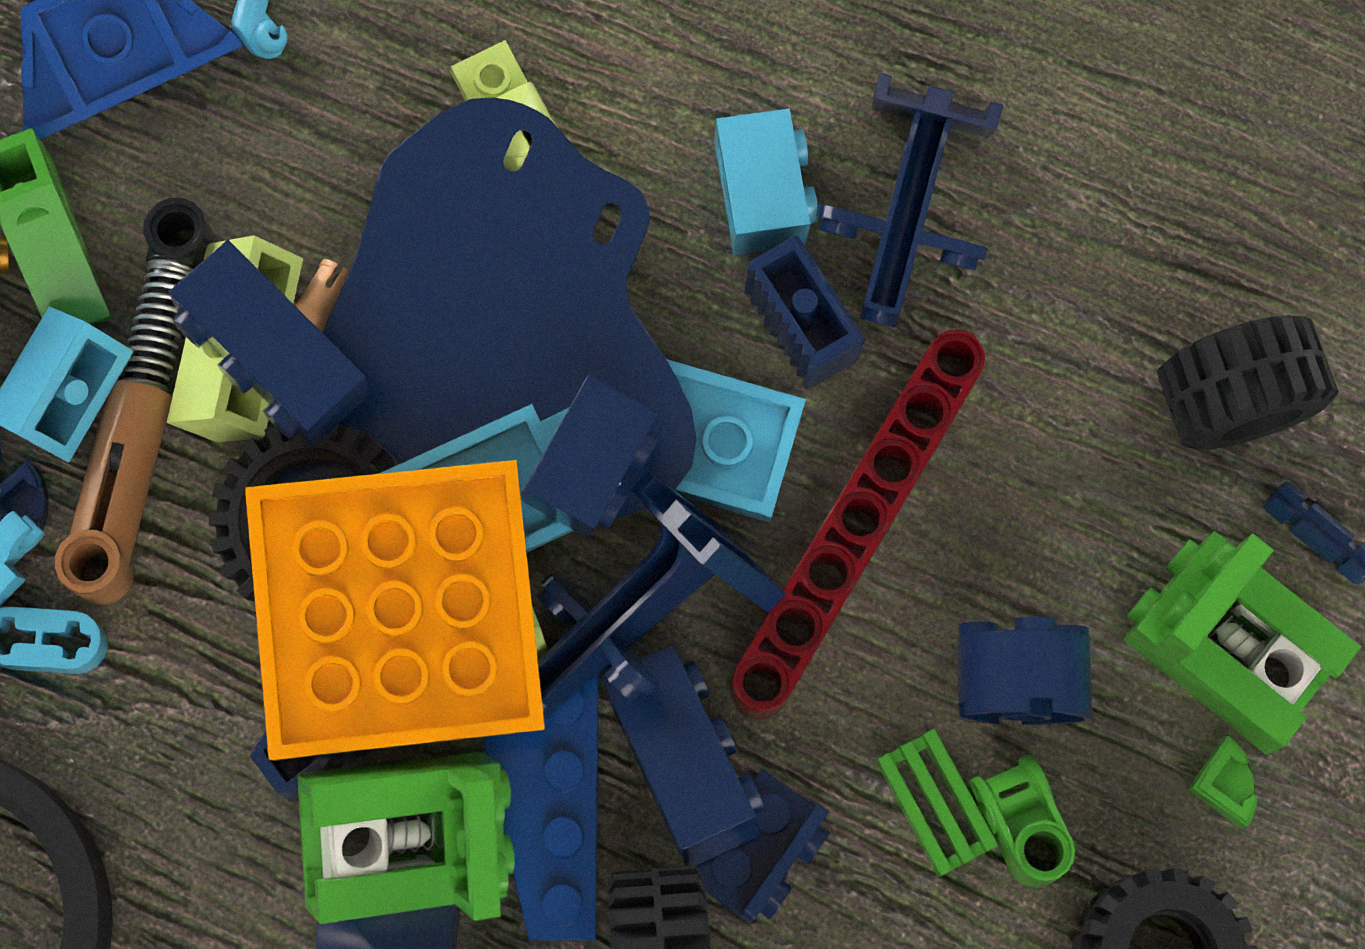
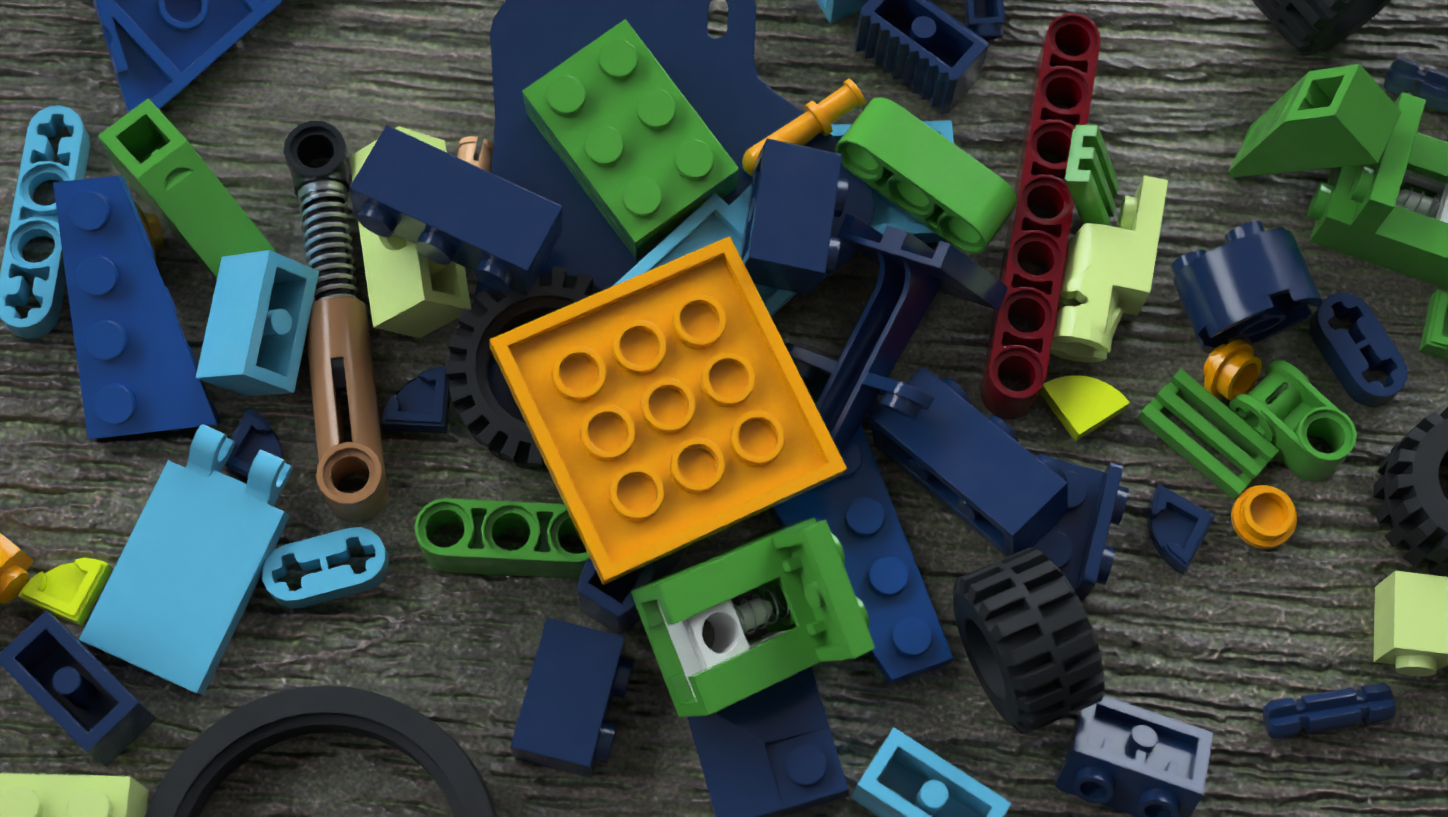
camera: 20 degrees left, 5 degrees down
(186, 510) = (420, 404): none -> dark blue tile
(191, 665) = (484, 523): none -> bright green beam
(217, 851) = (571, 698): none -> dark blue brick
(468, 322) = (630, 138): none -> bright green brick
(652, 363) = (815, 120): none -> light orange piece
(750, 452) = (926, 175): none -> bright green beam
(825, 729) = (1082, 403): none -> neon yellow tile
(868, 885) = (1176, 527): none -> dark blue tile
(896, 606) = (1108, 275): none -> yellowish green plate
(922, 503) = (1095, 184): none -> bright green tile
(957, 906) = (1264, 517): none -> light orange plate
(982, 749) = (1231, 370): none -> light orange plate
(1137, 766) = (1358, 349): none -> dark blue beam
(1159, 539) = (1320, 123): none -> bright green slope

